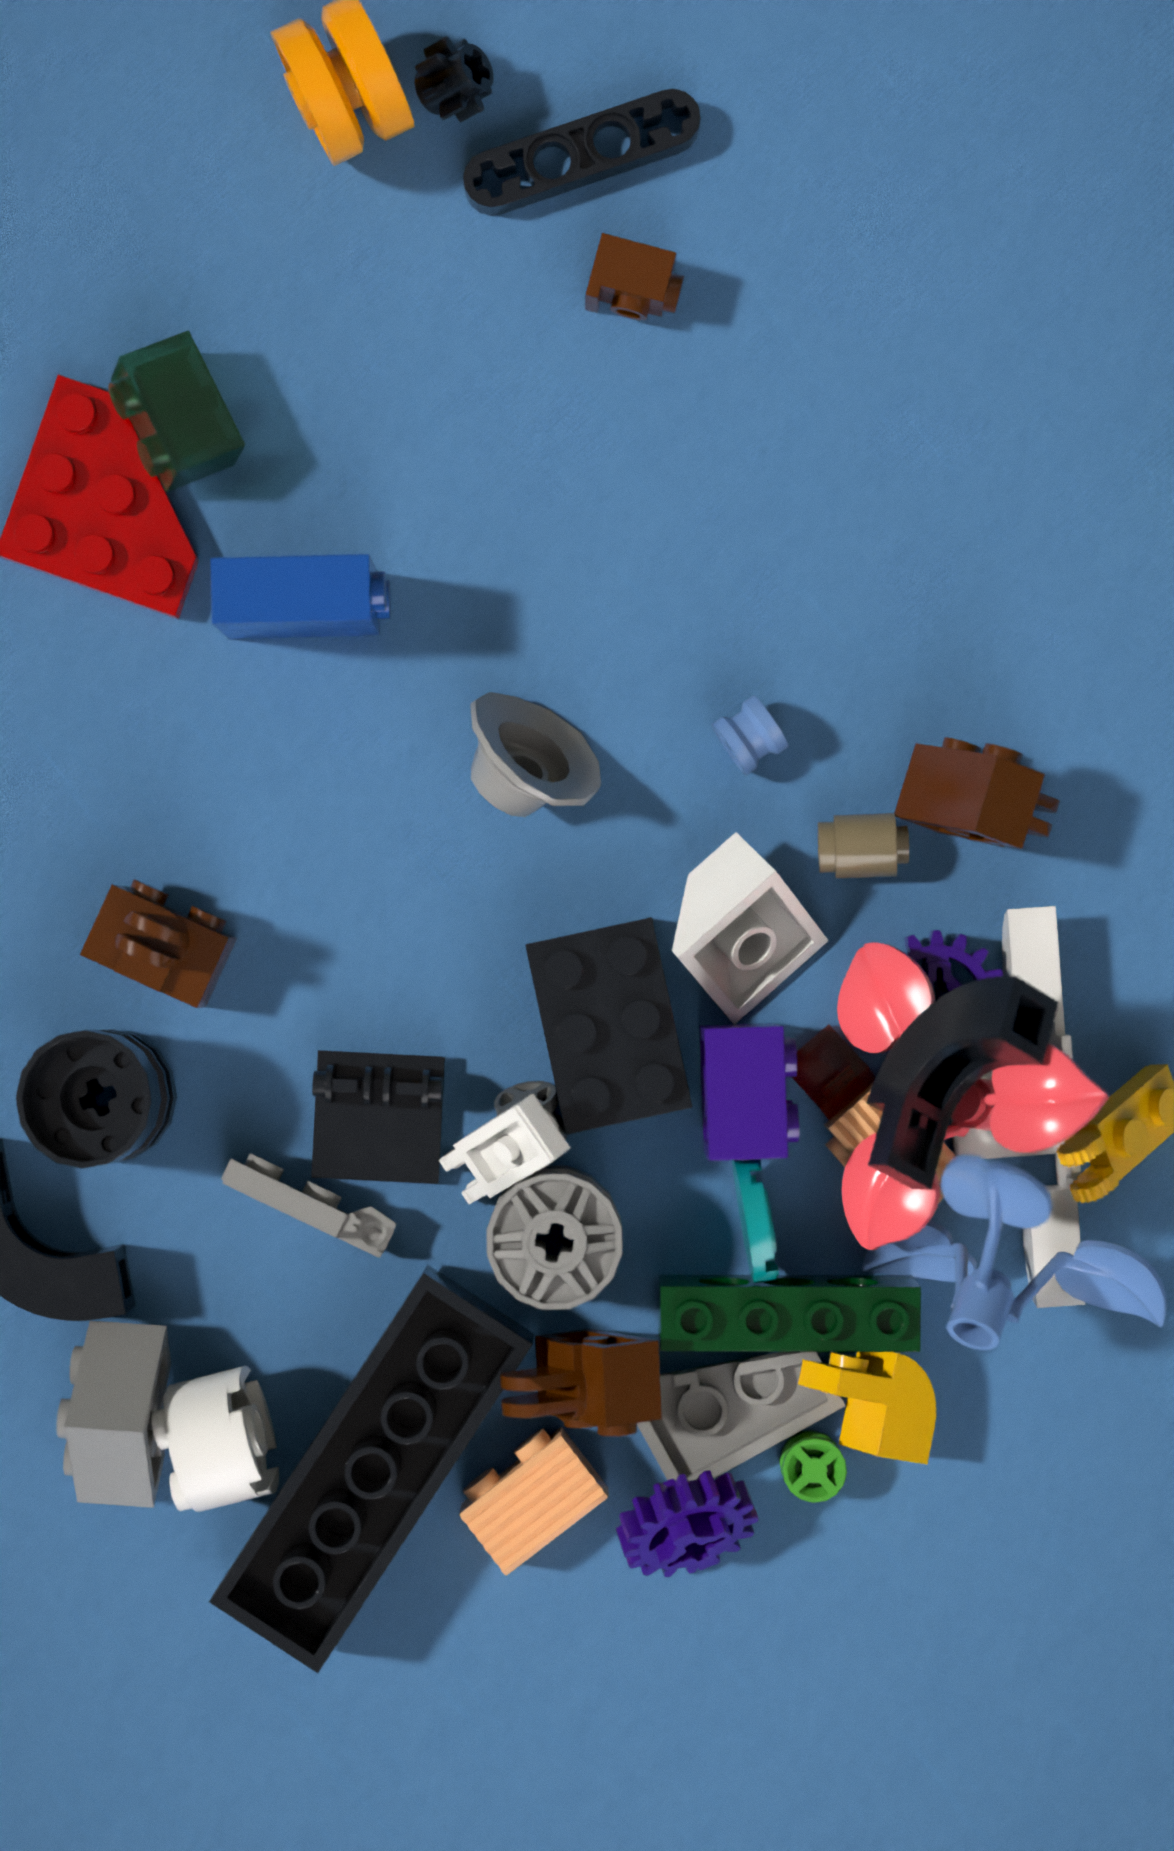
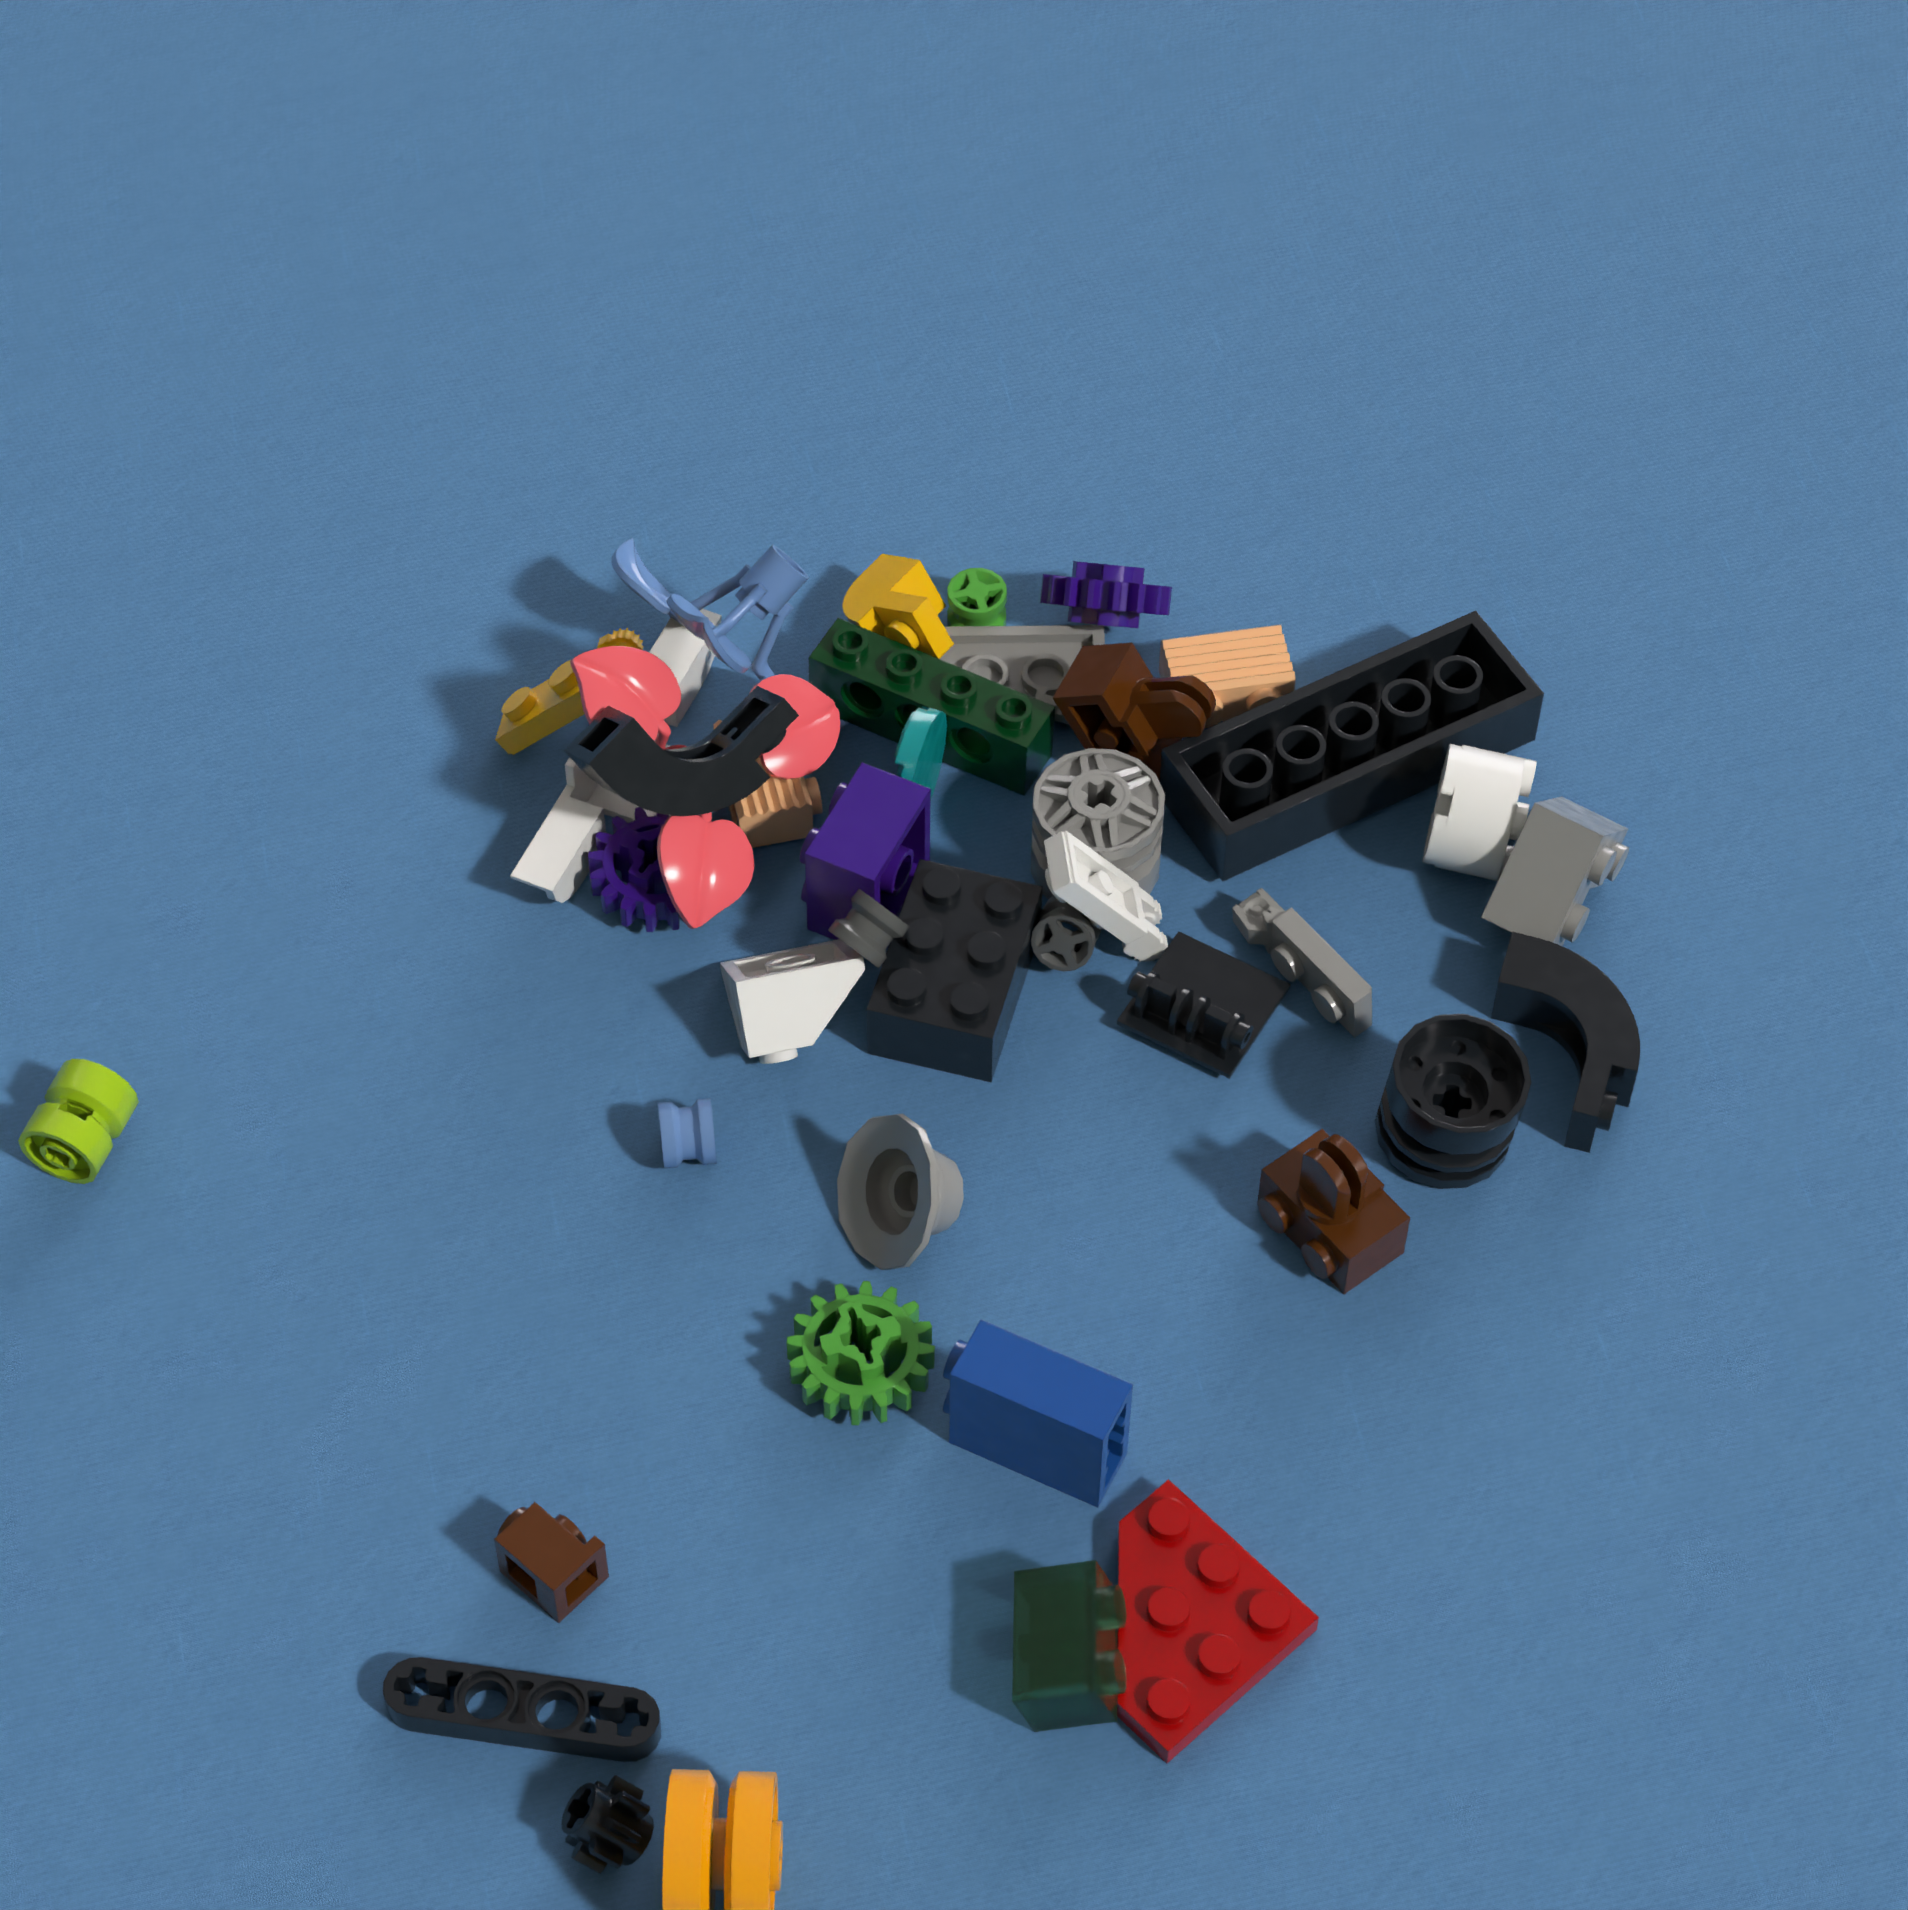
camera: 150 degrees left, 35 degrees down
(504, 577) = (839, 1370): none -> bright green gear
(688, 989) = (868, 928): none -> dark grey wheel
(831, 1072) = (778, 868): clear red slope -> none
(862, 845) = (644, 1007): dark tan brick -> none
(974, 793) = (526, 980): reddish brown brick -> none

